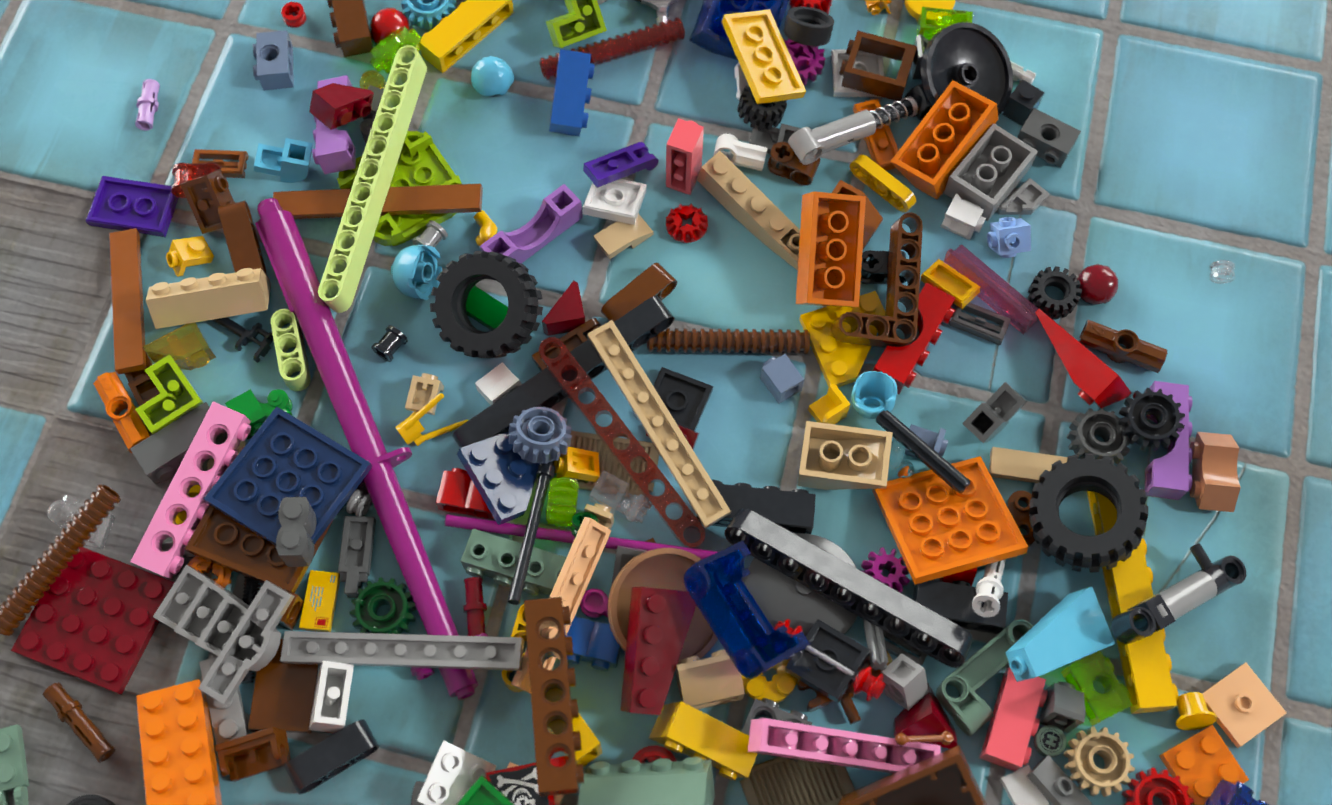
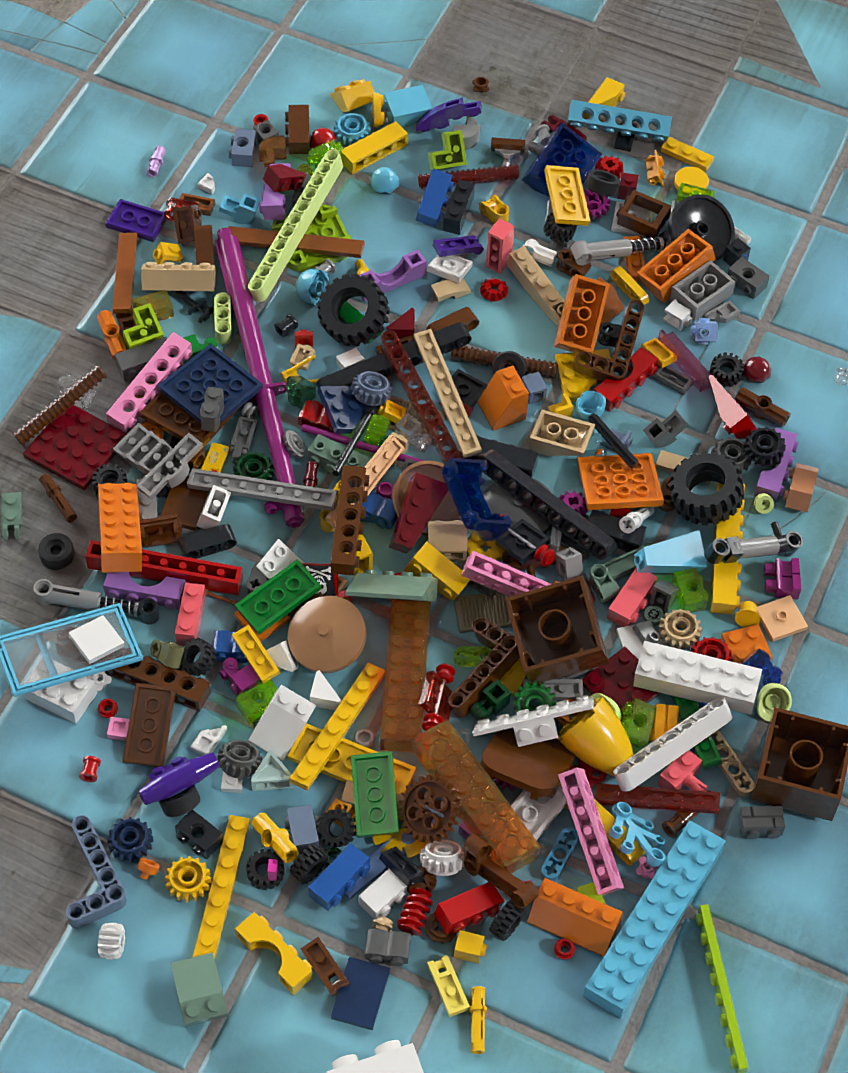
camera: 10 degrees right, 10 degrees down
(154, 657) = (108, 472): none -> black tyre
(231, 127) = (207, 184): none -> white tile
(305, 34) = (264, 130): none -> dark grey brick
(316, 56) = (272, 149): none -> clear orange brick
(420, 362) = (304, 338): none -> red tile
(430, 455) = (300, 390): none -> clear green slope
(446, 557) = (294, 443): none -> light grey gear
(608, 100) = (458, 207): none -> black brick
(662, 96) = (494, 209): none -> yellow piece
(739, 370) = (509, 357): none -> black tyre
(744, 411) = (504, 399): none -> orange slope
(845, 24) = (627, 185): none -> dark red brick
(1166, 509) = (763, 503): none -> yellowish green tile
(1230, 635) = (786, 578): none -> magenta hips

